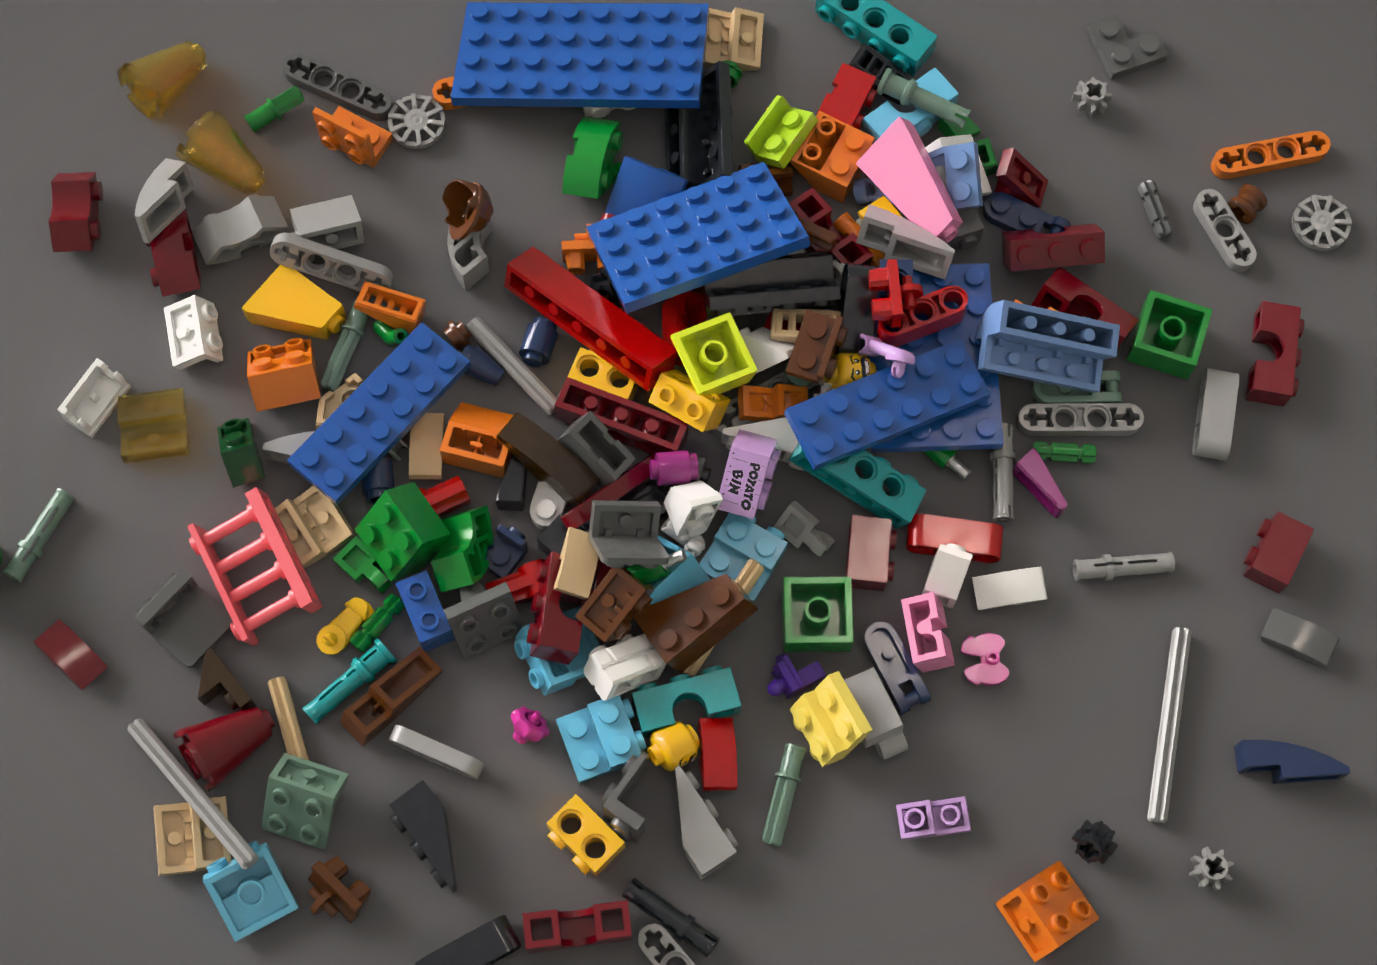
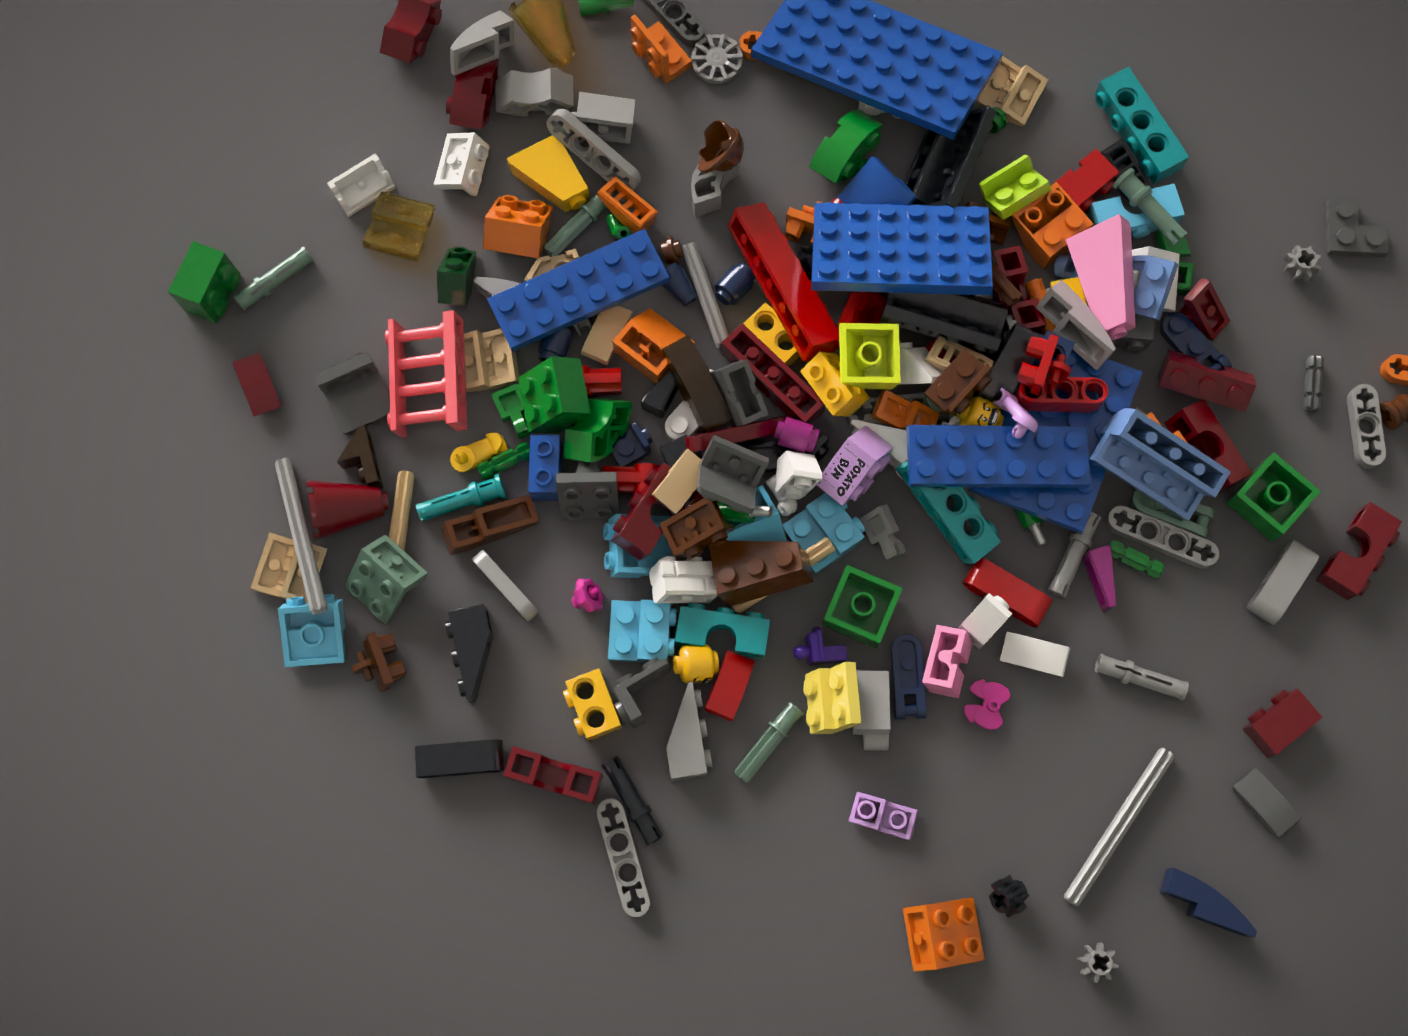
camera: 30 degrees right, 5 degrees up
(869, 552) = (929, 573): brick -> none

